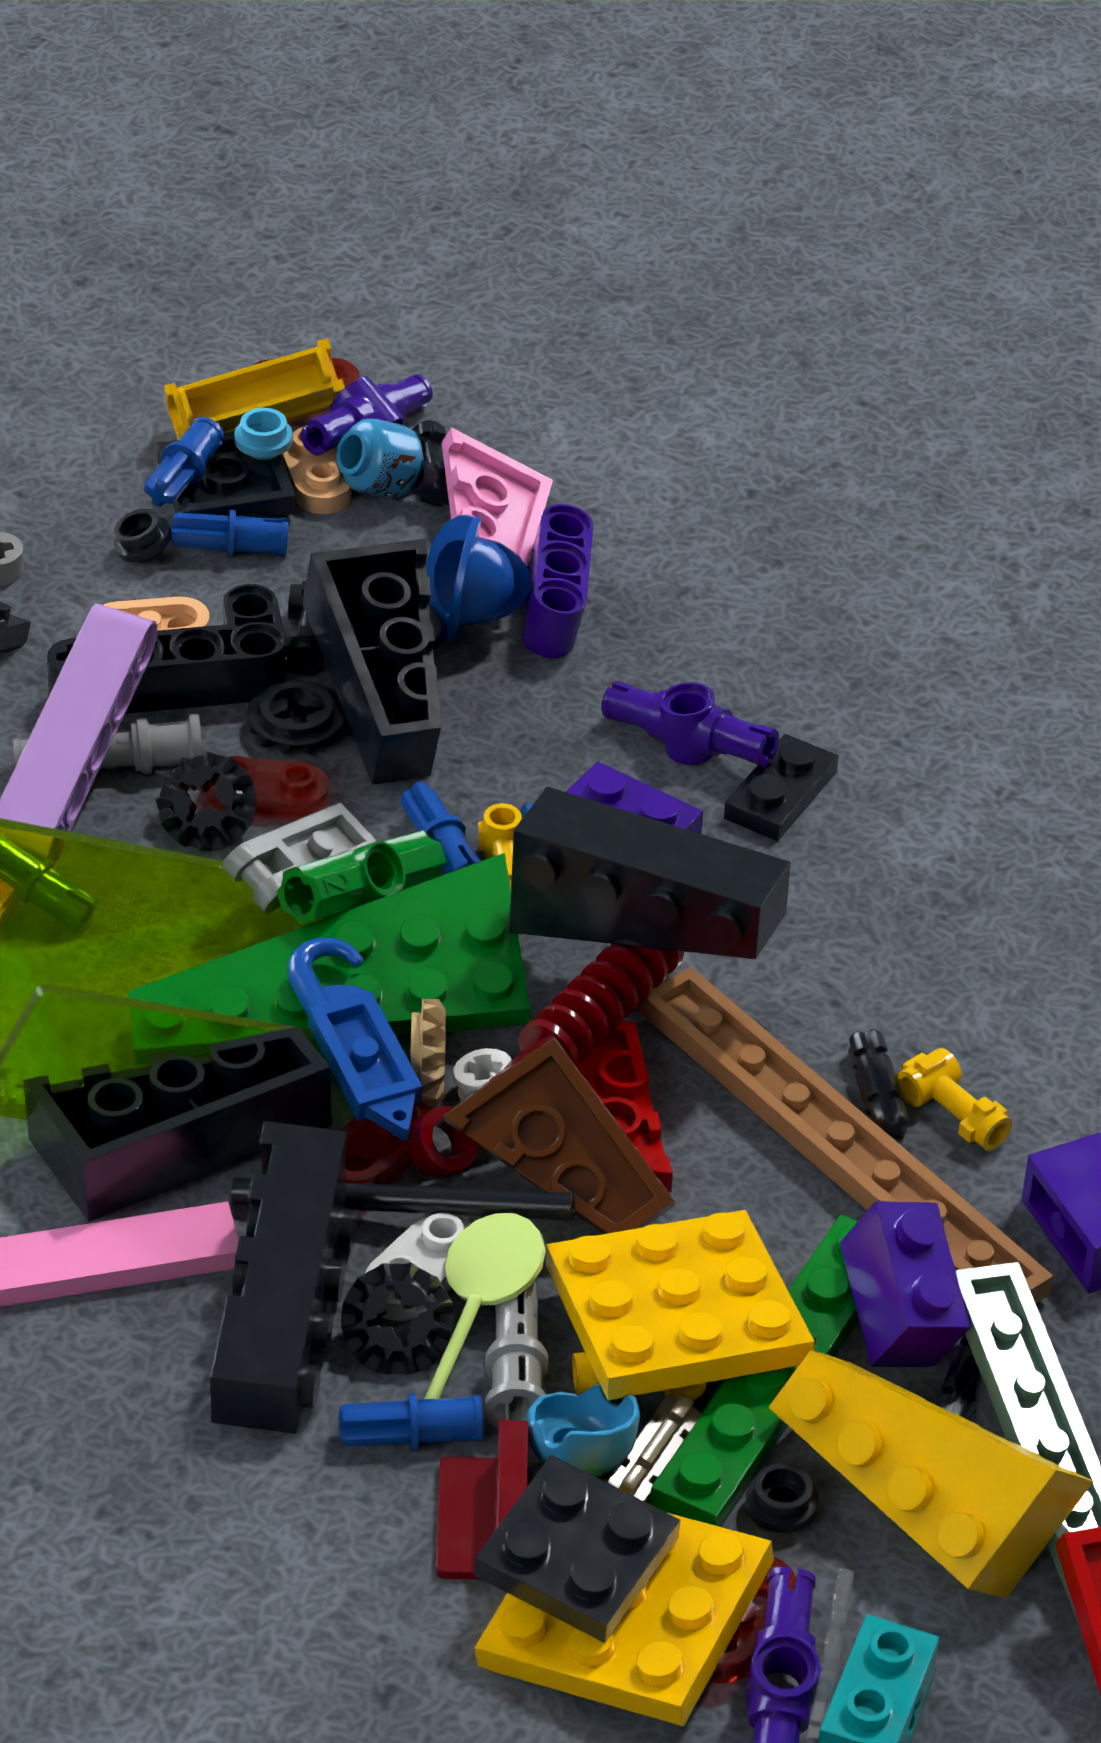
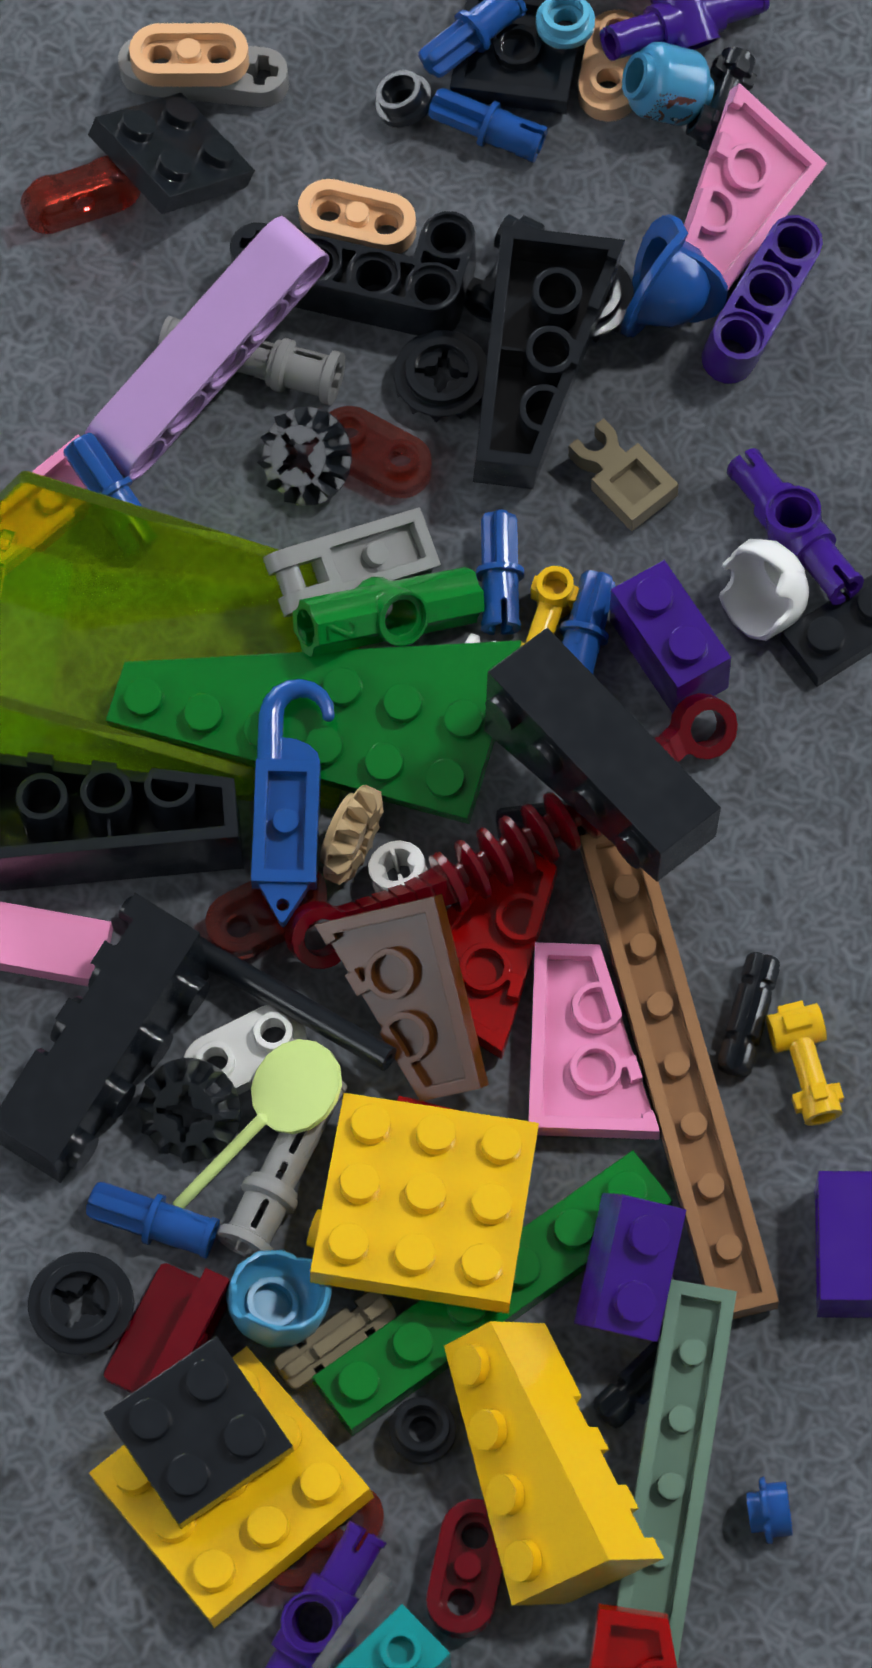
camera: 30 degrees right, 25 degrees up
(355, 1498) = (71, 1277): none -> black gear
(511, 739) = (625, 481): none -> dark tan plate
(694, 764) = (765, 588): none -> white hair
(743, 1157) = (580, 1051): none -> bright pink wing
(909, 1592) = (464, 1571): none -> dark red plate

